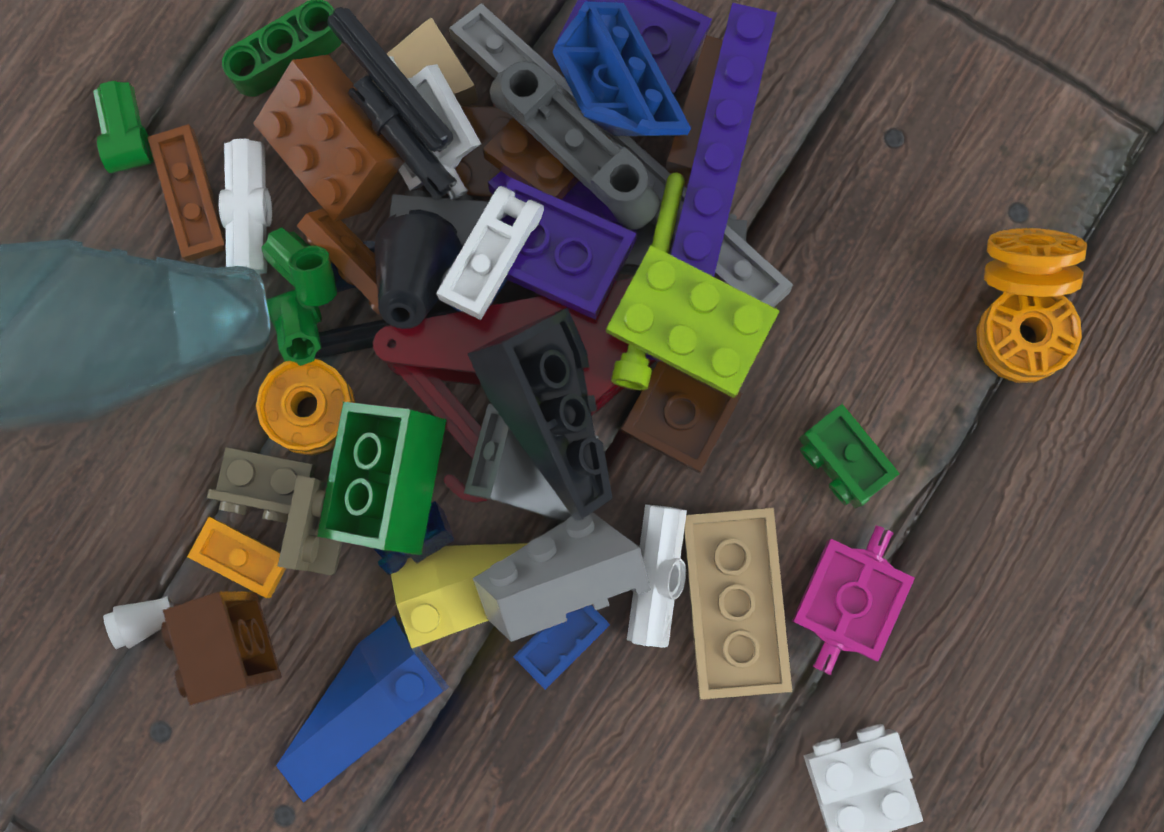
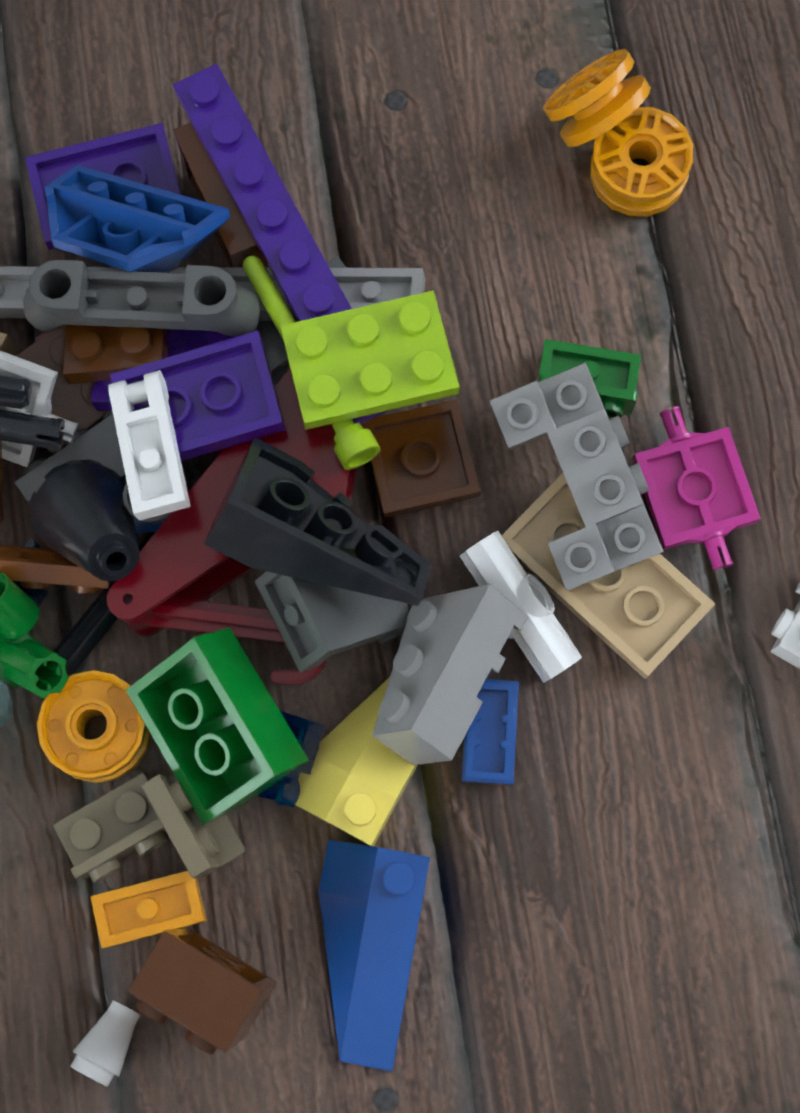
camera: 45 degrees left, 5 degrees down
(788, 527) = (594, 467): none -> light grey bracket

